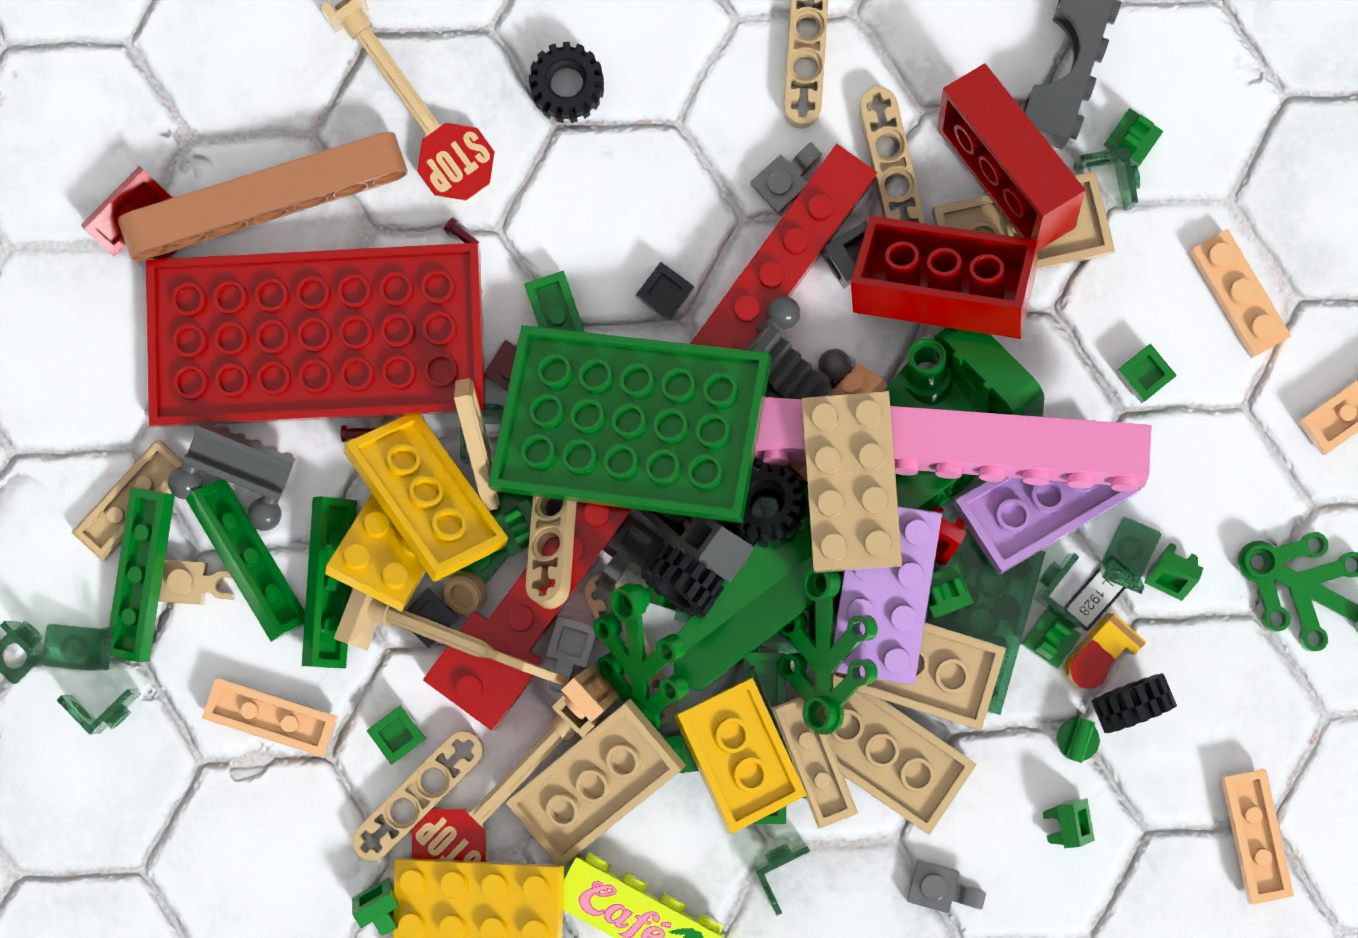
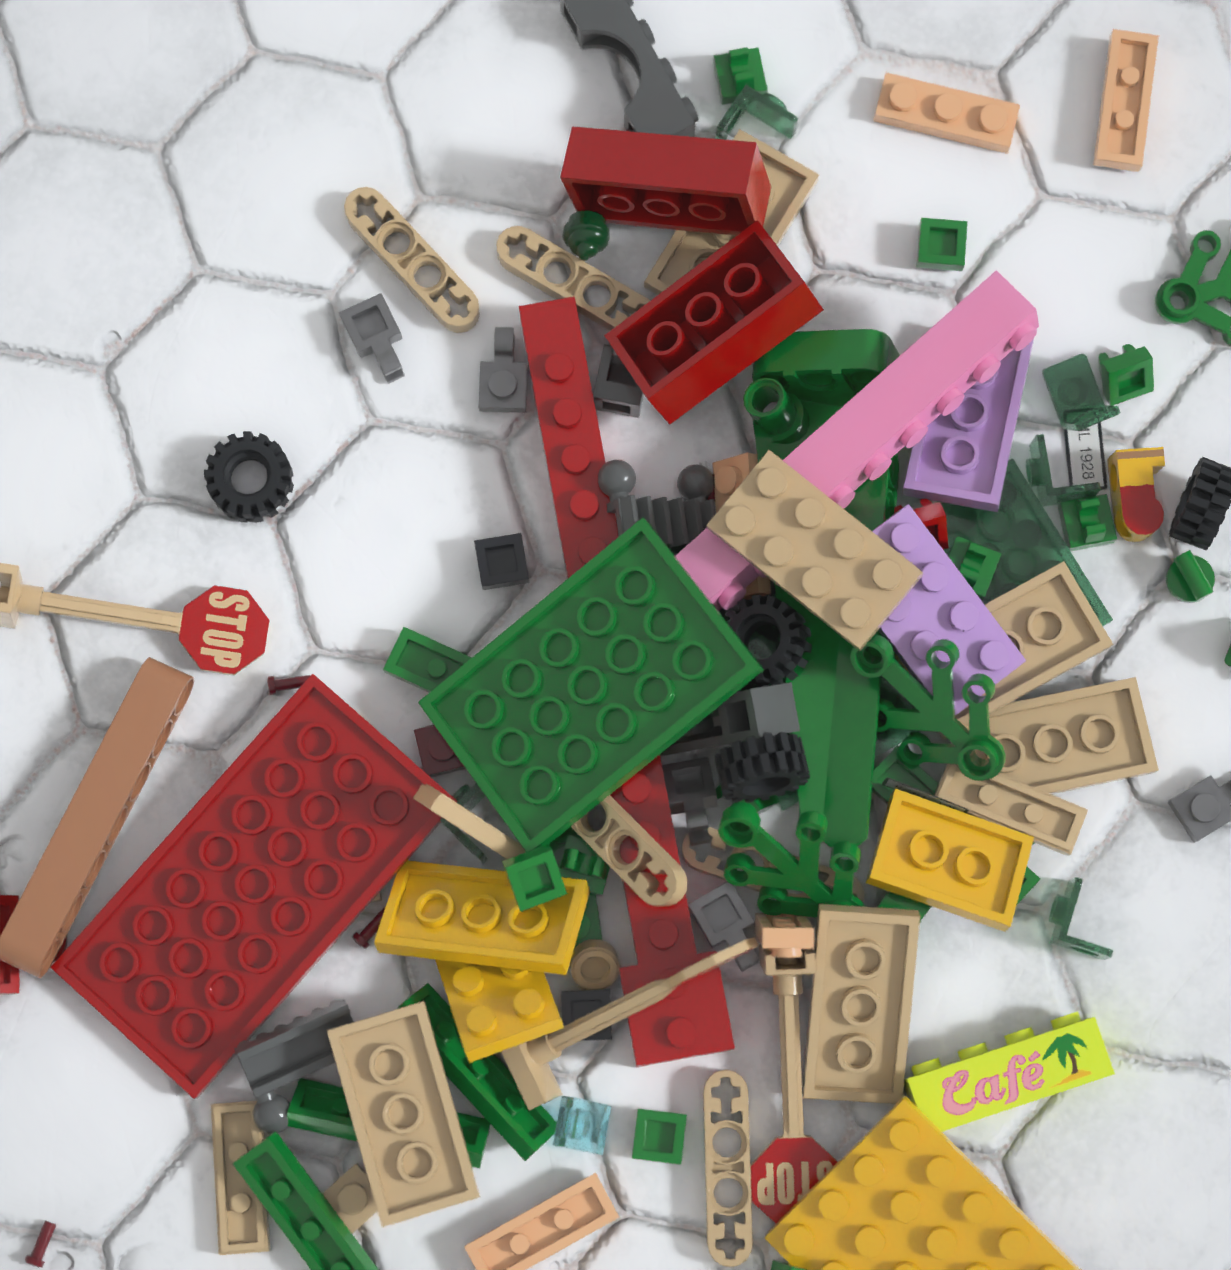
camera: 45 degrees left, 5 degrees down
(255, 563) = (403, 1114): none -> tan plate
(357, 680) = (582, 1125): none -> clear light blue plate
(476, 504) = (534, 877): none -> green tile
(735, 69) = (373, 331): none -> flat silver plate
(929, 140) = (586, 234): none -> dark green plate

